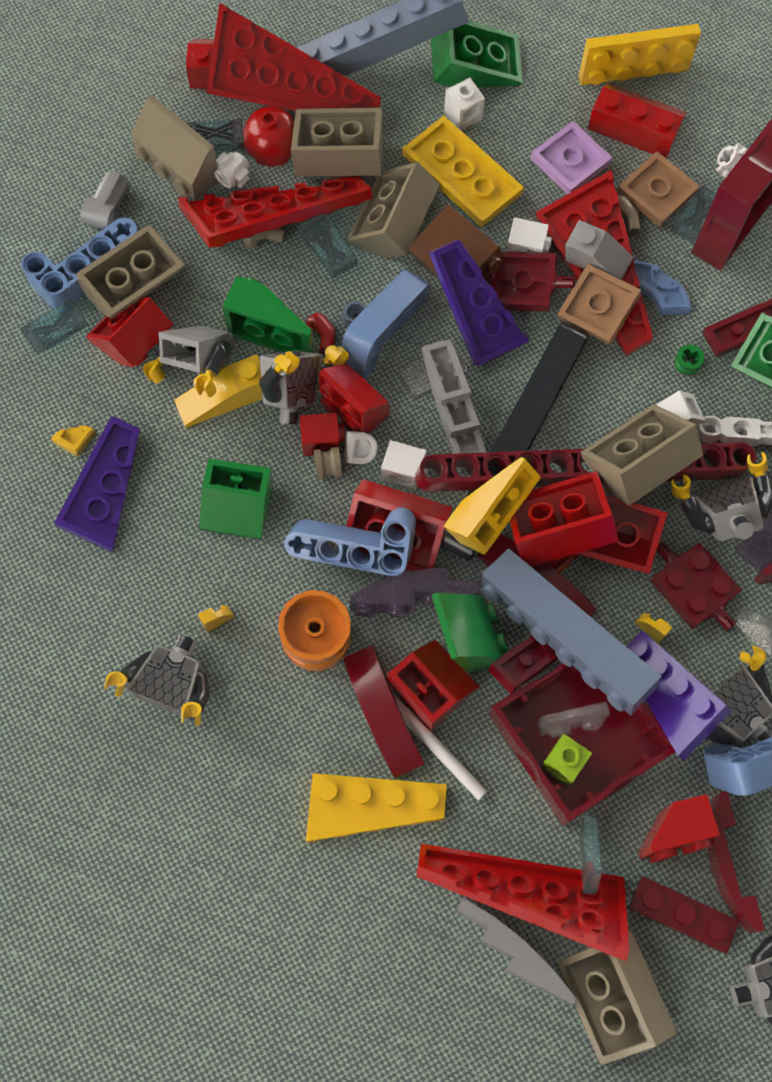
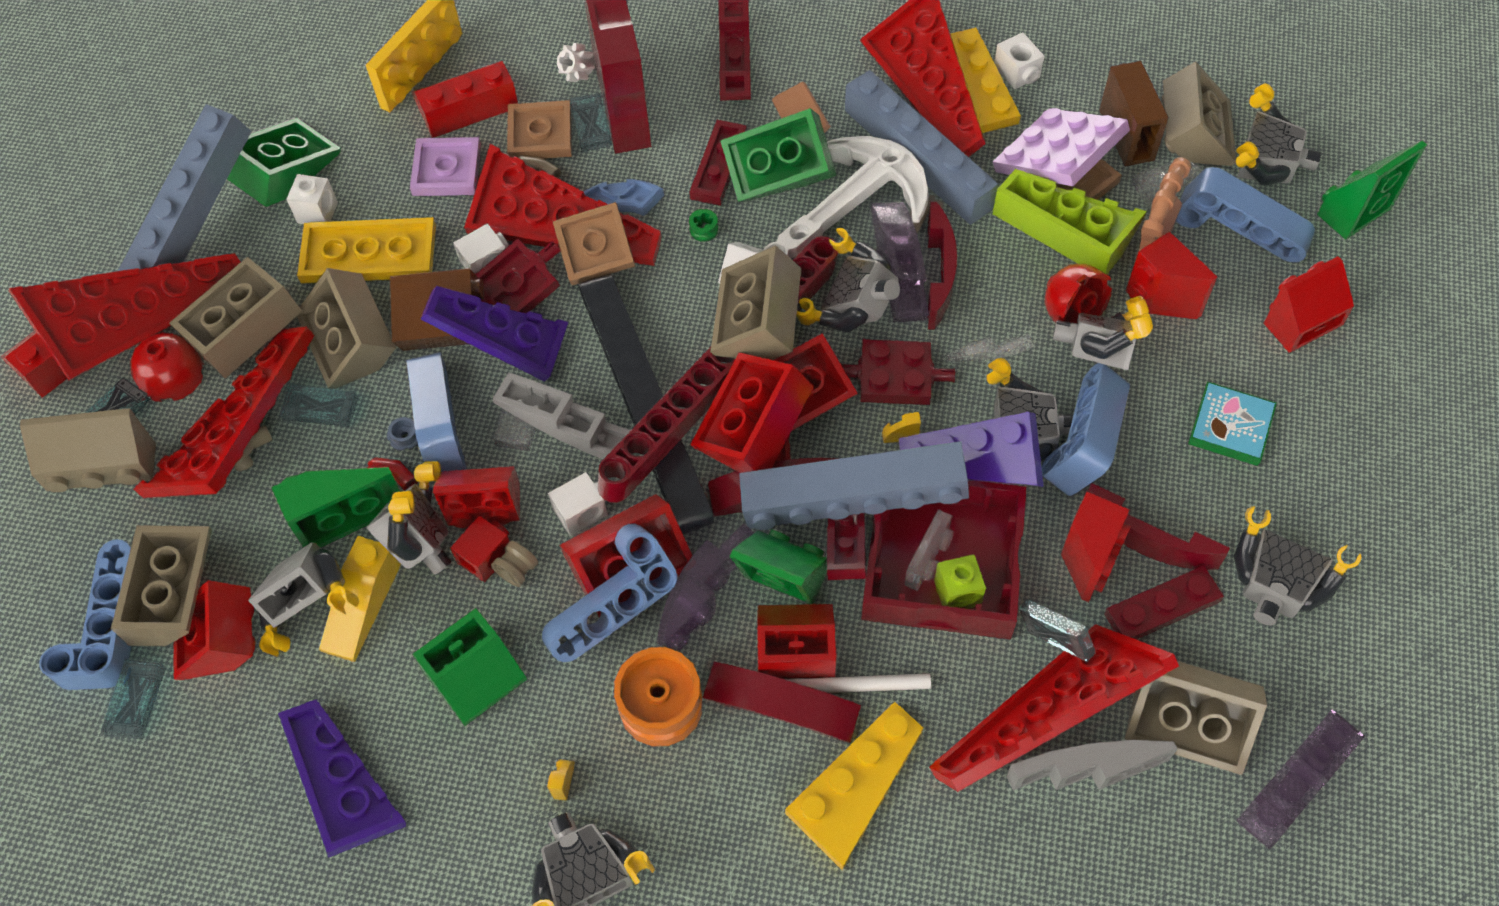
camera: 45 degrees left, 10 degrees down
(74, 439) = (261, 771): yellow tile -> none
(105, 204) = (69, 557): light grey piece -> none
(232, 169) = (162, 421): white gear -> none
(359, 448) = (526, 526): white tile -> none
(490, 507) = (691, 458): yellow slope -> none
(598, 249) = (547, 203): light grey slope -> none

